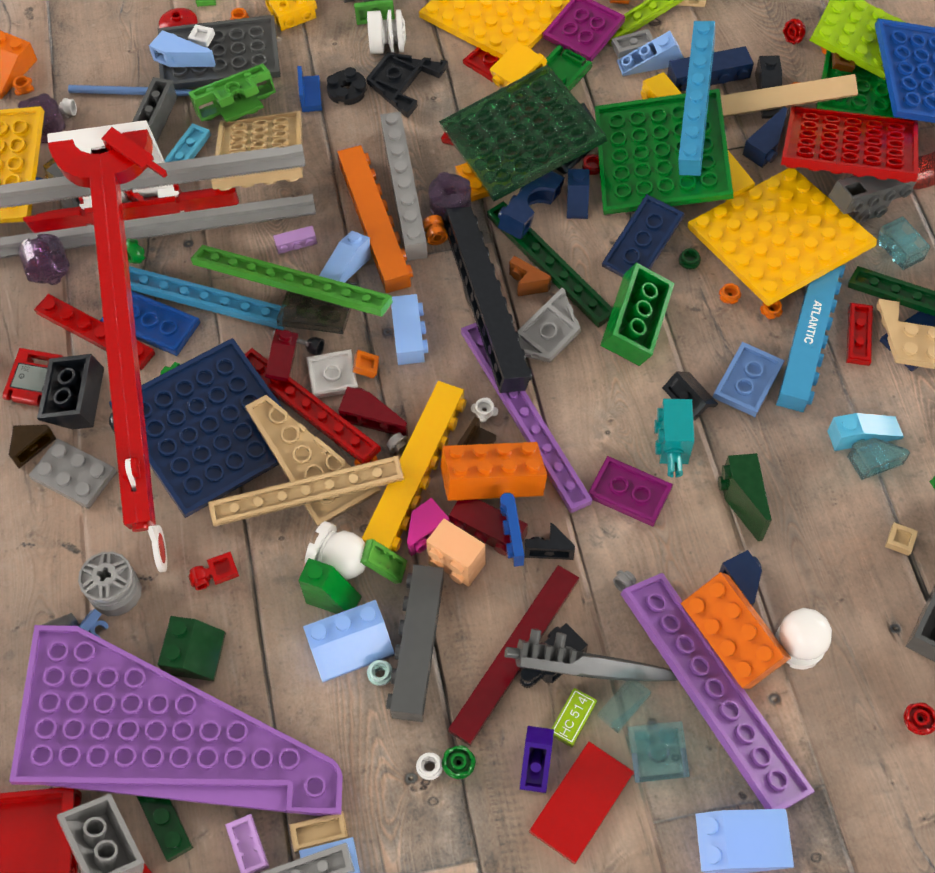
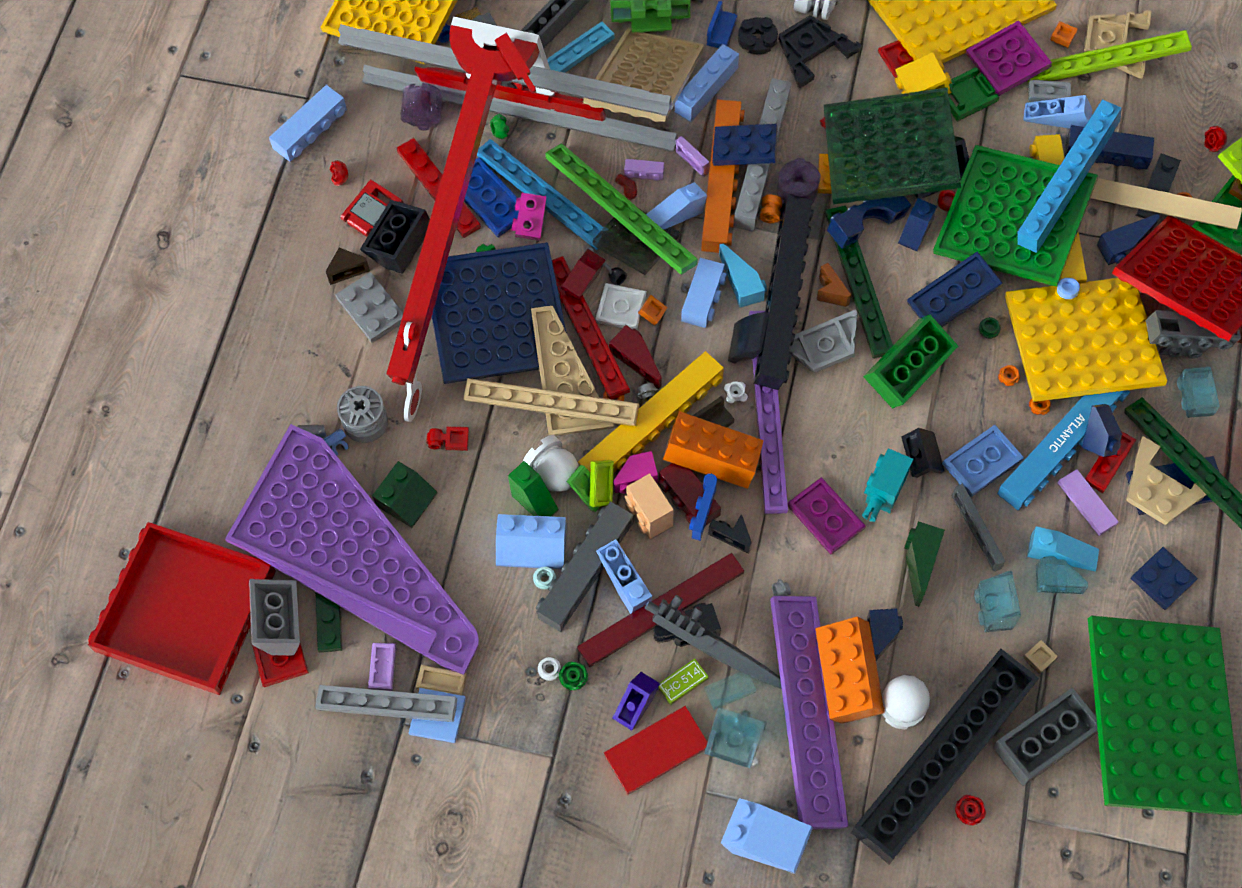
camera: 25 degrees right, 5 degrees up
(202, 319) = (529, 216): none -> dark pink brick
(287, 259) = (629, 185): none -> clear red arm
(320, 140) = (707, 82): none -> light blue brick
(336, 210) = (692, 156): none -> lavender tile
(384, 179) = (745, 144): none -> dark blue plate
(396, 550) = (601, 483): none -> lime tile
(438, 301) = (742, 277): none -> medium azure slope
(464, 635) = (624, 576): none -> light blue slope
(473, 352) = (748, 337): none -> black slope
(743, 196) = (1068, 288): none -> light blue tile
(779, 442) = (978, 528): none -> dark grey tile
(838, 503) = (998, 603): none -> clear light blue slope
(845, 308) = (1102, 432): none -> dark blue slope
(862, 378) = (1088, 502): none -> lavender tile
(869, 680) = (944, 756): none -> black brick

